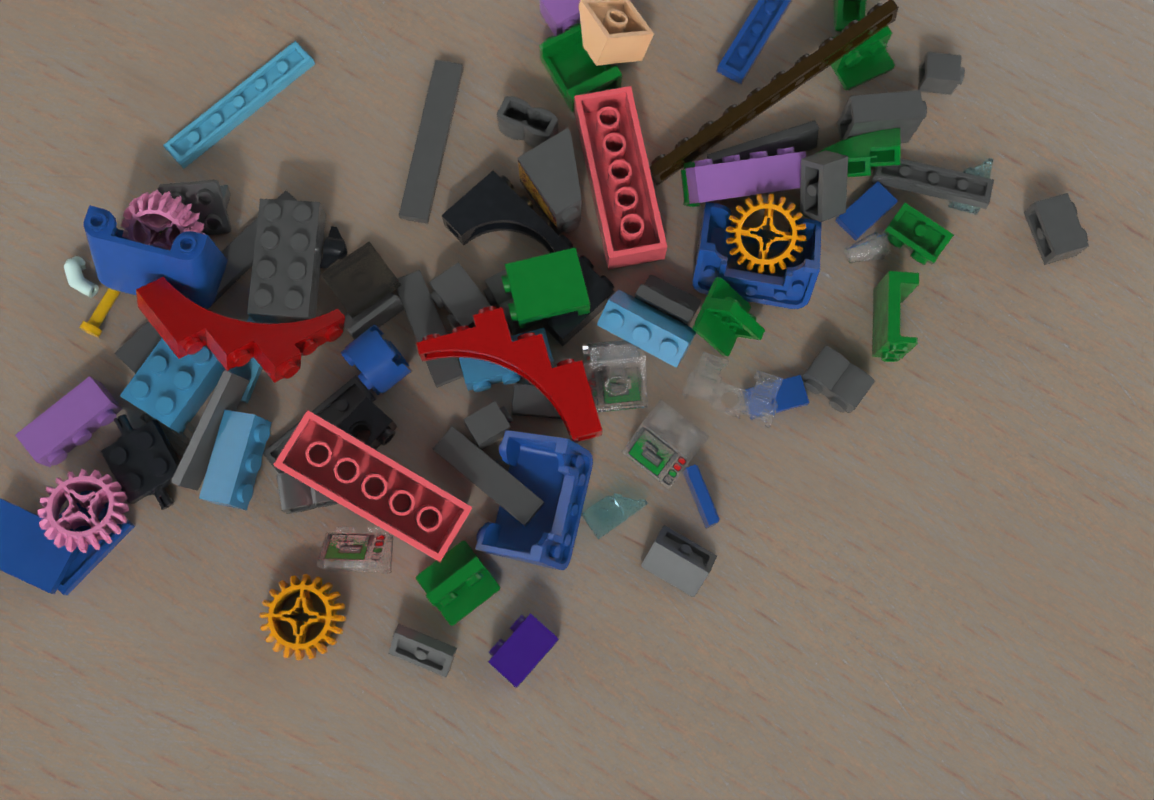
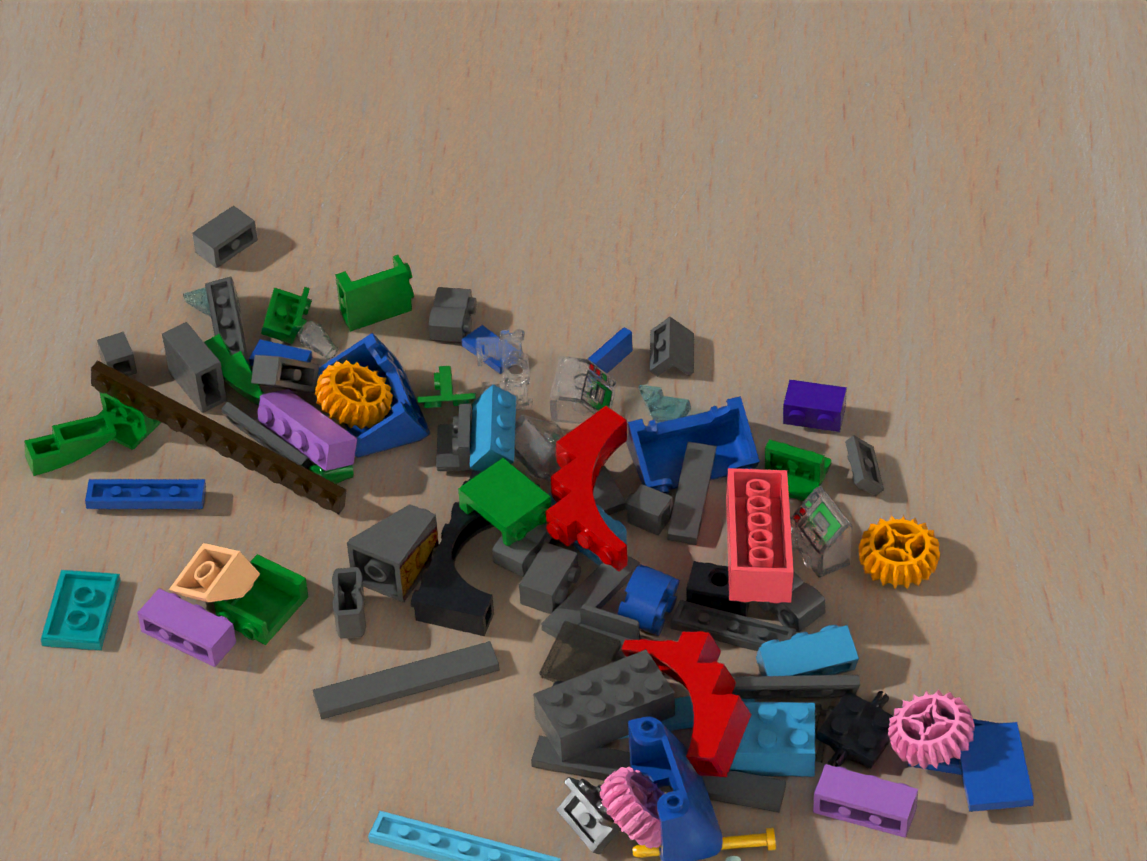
camera: 115 degrees left, 30 degrees down
(620, 178) = (318, 537): coral brick -> none

